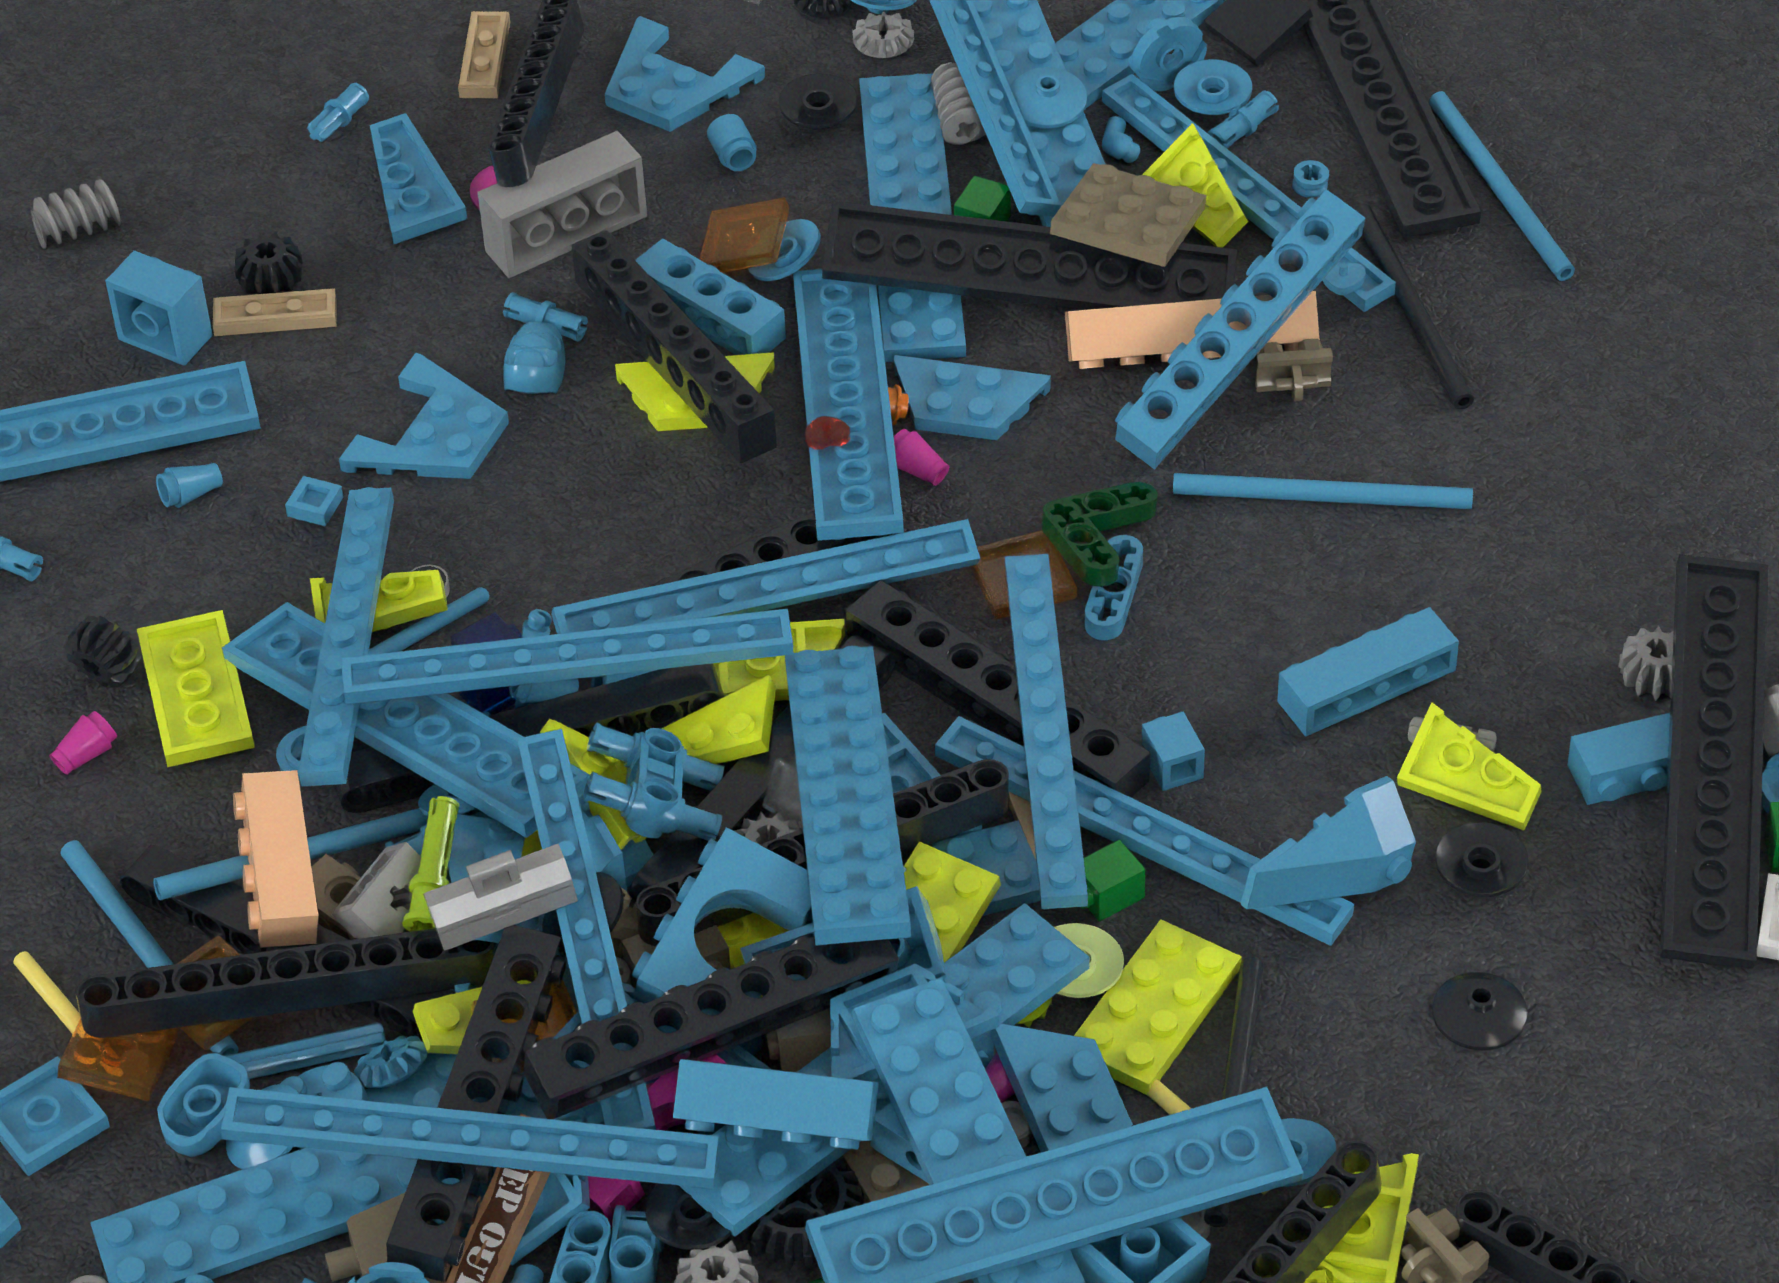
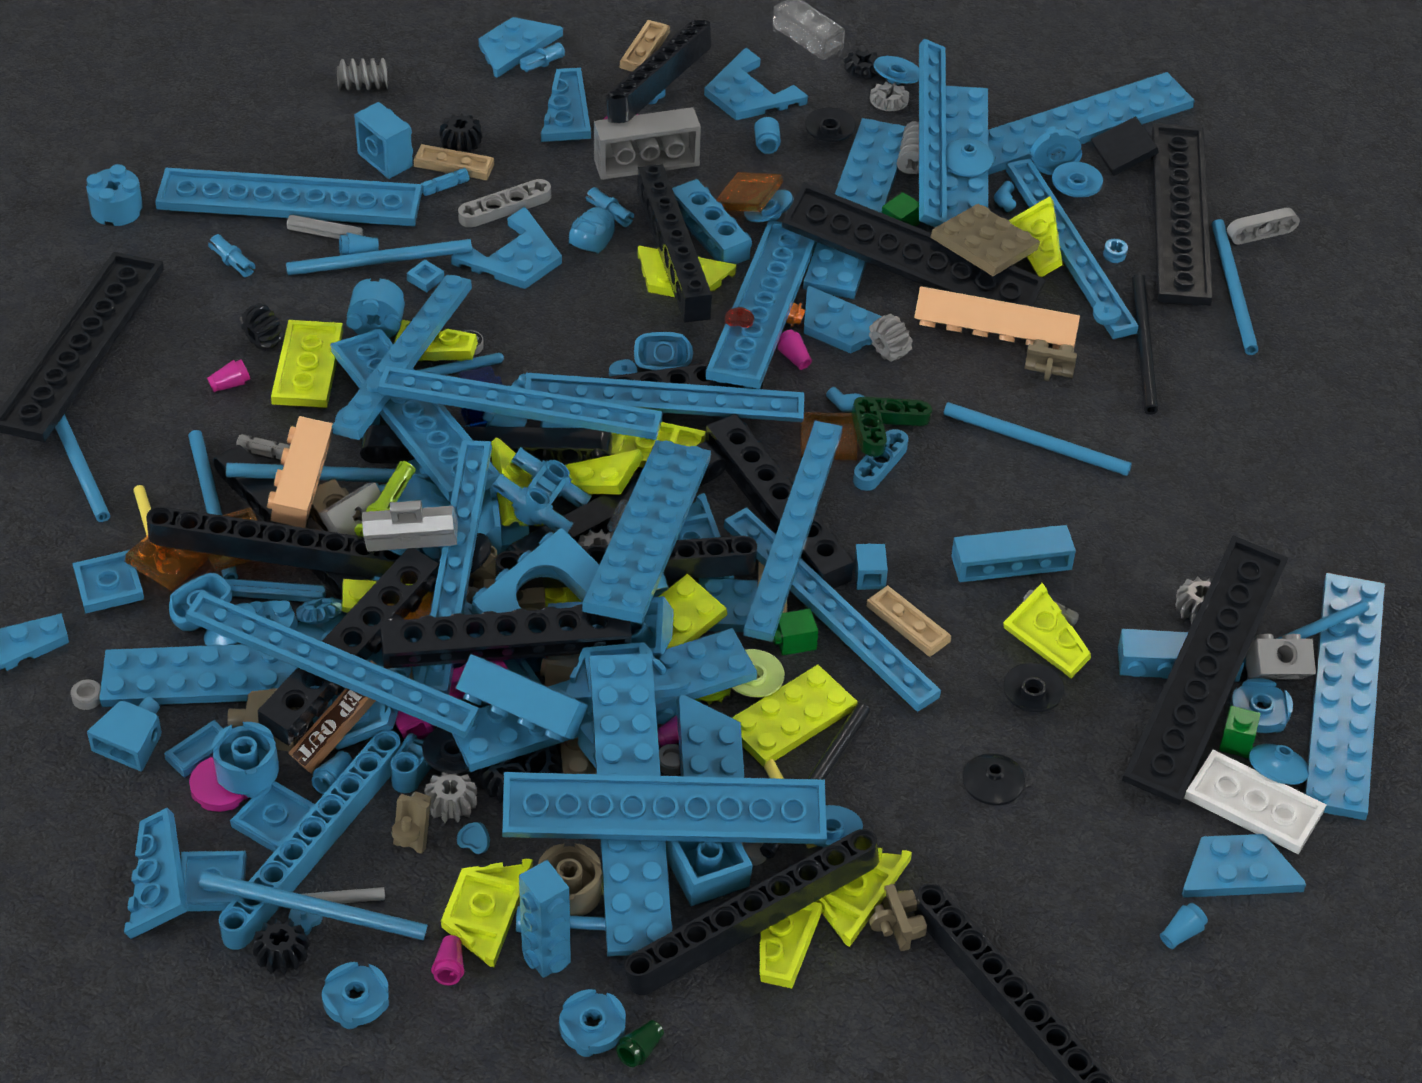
camera: 15 degrees right, 0 degrees up
(117, 470) = (320, 227): none -> light grey axle
(187, 836) = (261, 446): none -> light grey axle
(230, 492) = (379, 257): none -> dark azure piece
(267, 571) = (376, 307): none -> dark azure brick
(276, 346) = (445, 181): none -> dark azure axle
(284, 100) = (515, 40): none -> dark azure wing
(346, 382) = (532, 194): none -> light grey beam
(674, 559) = (622, 367): none -> dark azure piece
(728, 516) = (662, 350): none -> dark azure piece
(1024, 516) = (842, 401): none -> dark azure arm
(1052, 400) = (890, 337): none -> light grey gear
(1155, 438) = (970, 364): dark azure brick -> none
(1245, 119) = (1088, 204): dark azure pin -> none
(1249, 811) = (908, 621): none -> tan tile
(1343, 854) = (945, 657): dark azure wedge -> none
(1503, 84) = (1247, 228): none -> light grey beam

